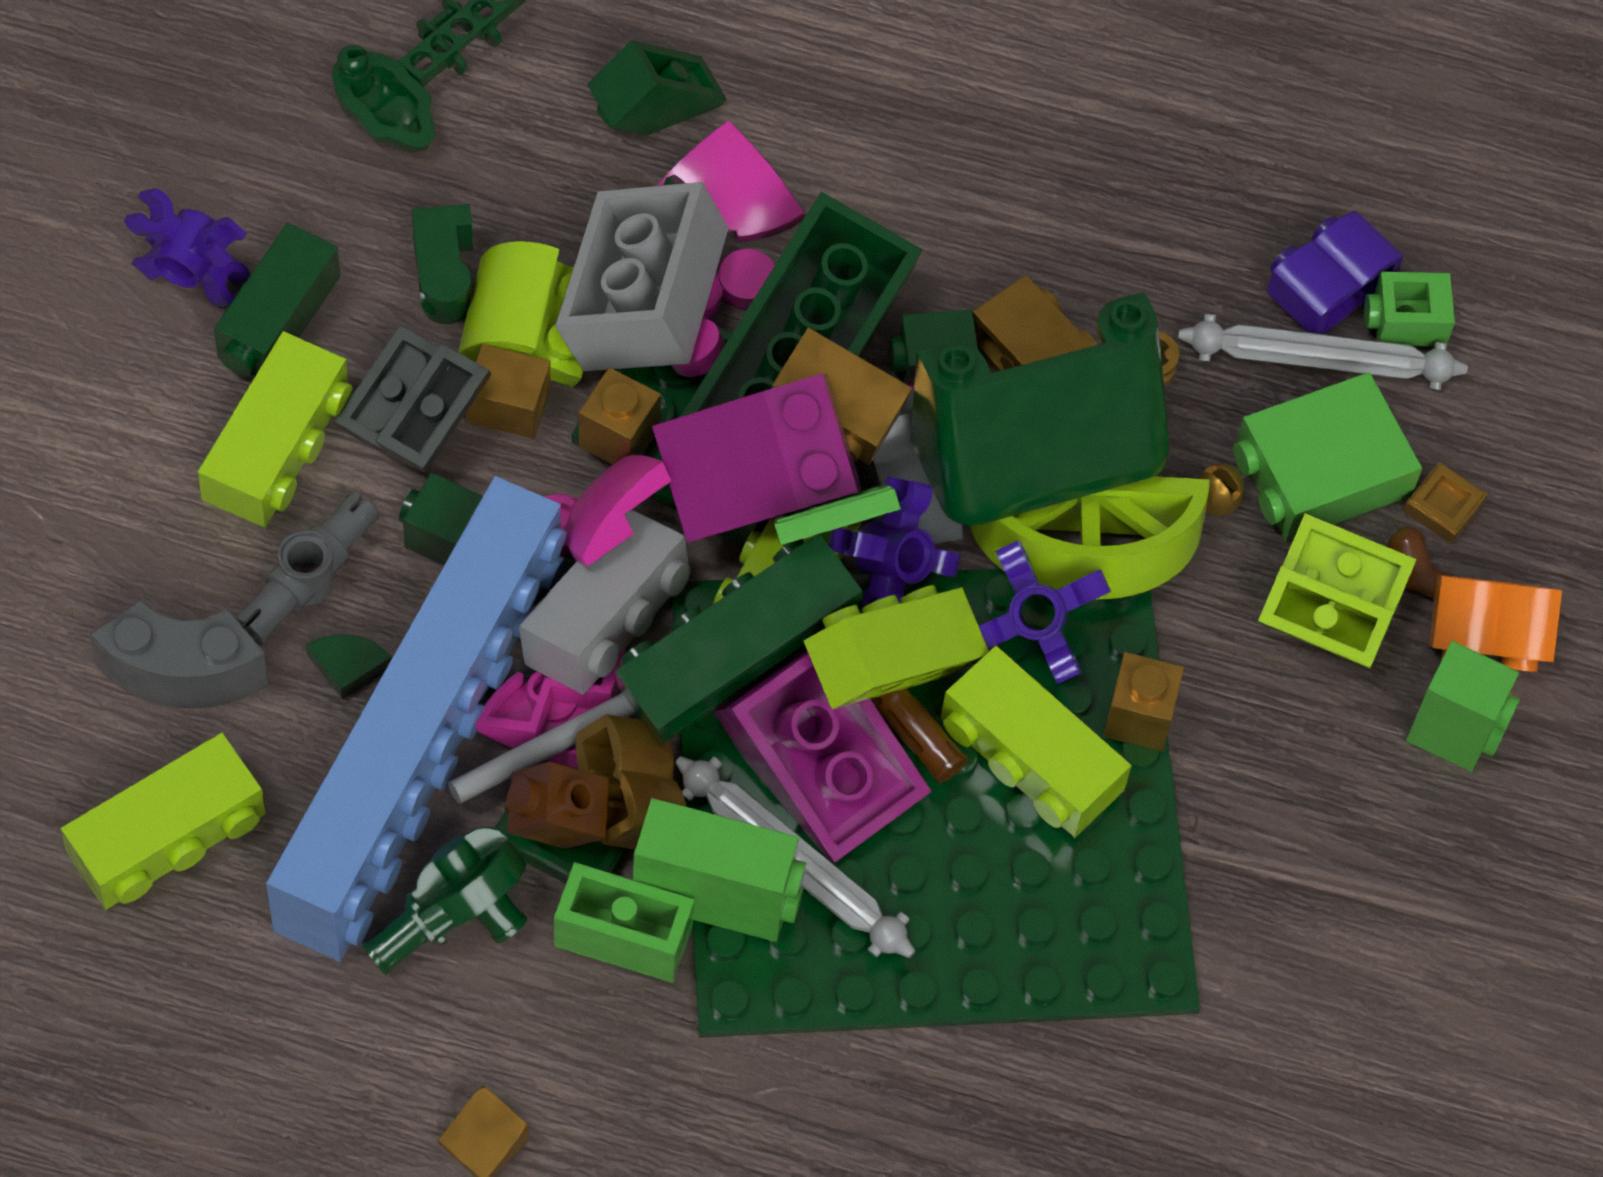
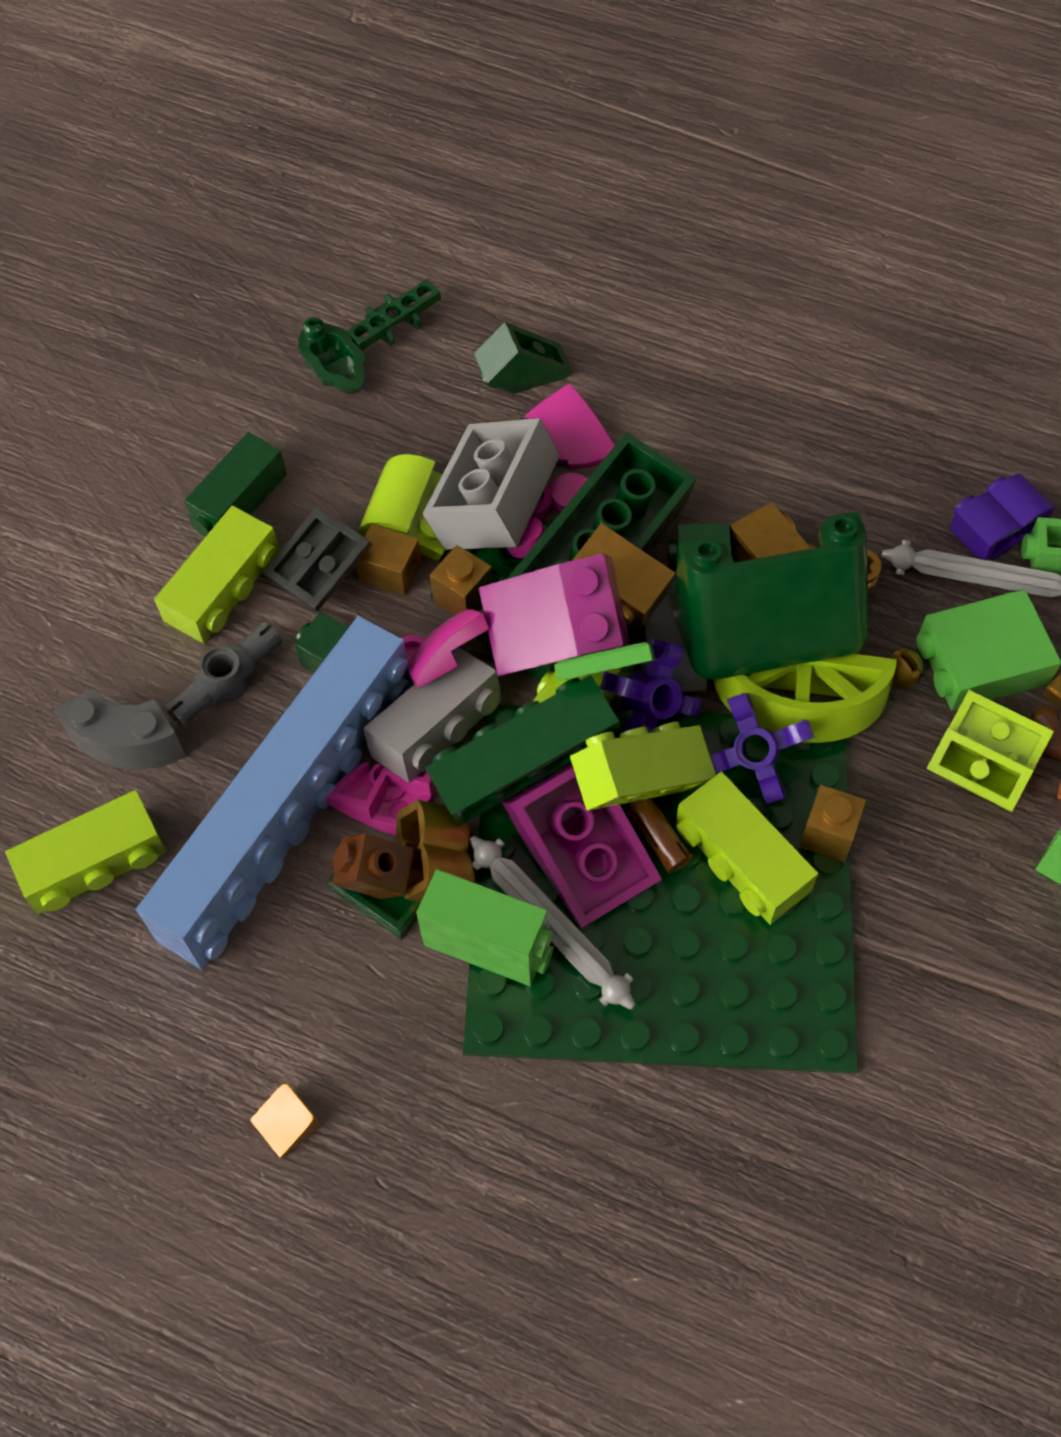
camera: 15 degrees right, 0 degrees up
(188, 247) = (175, 442): dark purple pin -> none
(347, 661) = (240, 742): dark green tile -> none
(442, 277) = (354, 456): dark green leg -> none
(459, 883) = (287, 922): dark green pin -> none
(533, 751) = (363, 823): light grey bar -> none
(623, 922) = (412, 961): bright green brick -> none

